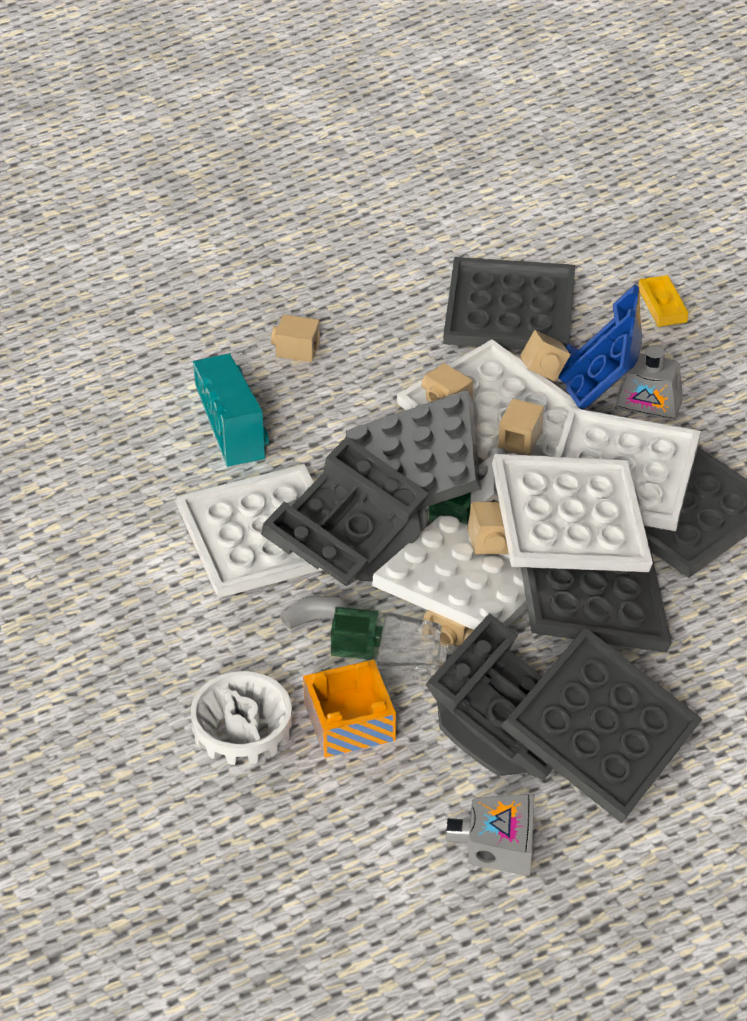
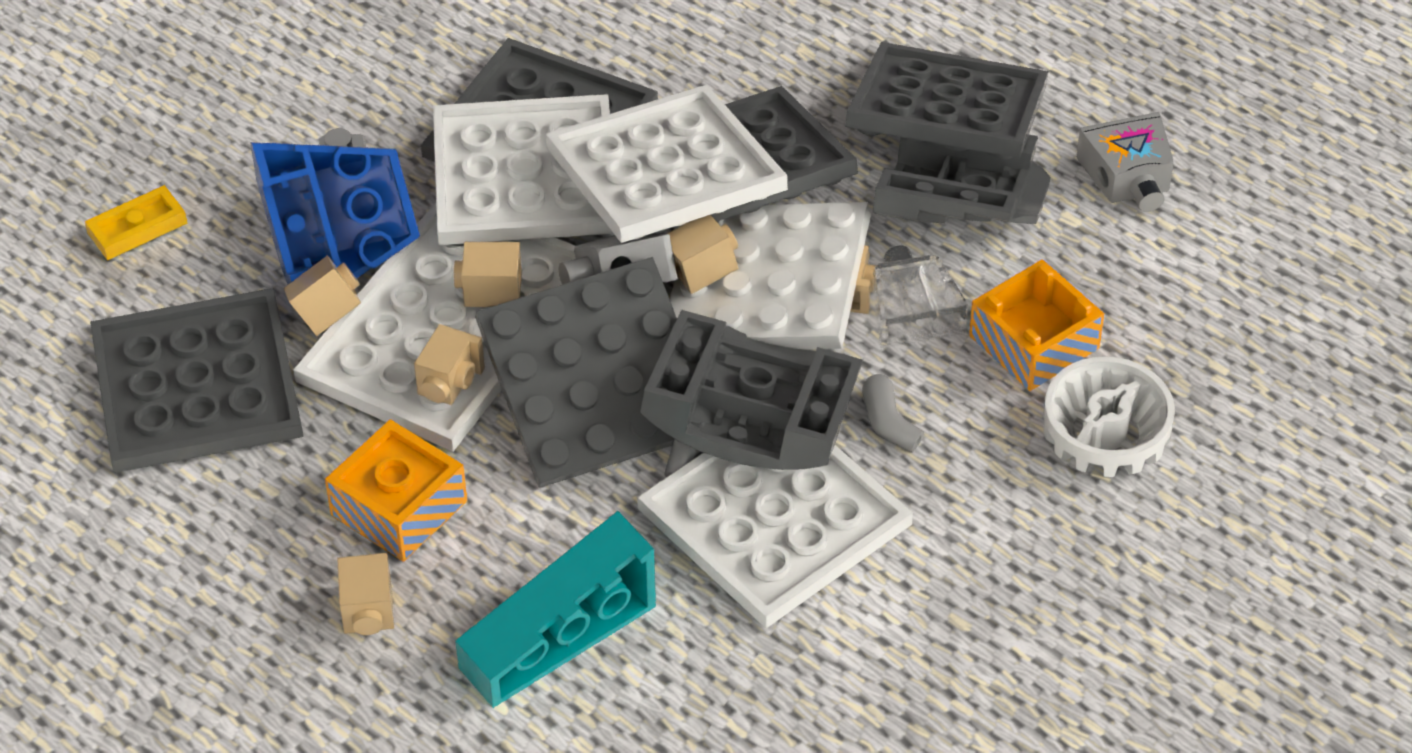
camera: 110 degrees left, 5 degrees up
(355, 633) = (913, 358): clear green brick -> none
(363, 358) = (396, 490): none -> light orange container

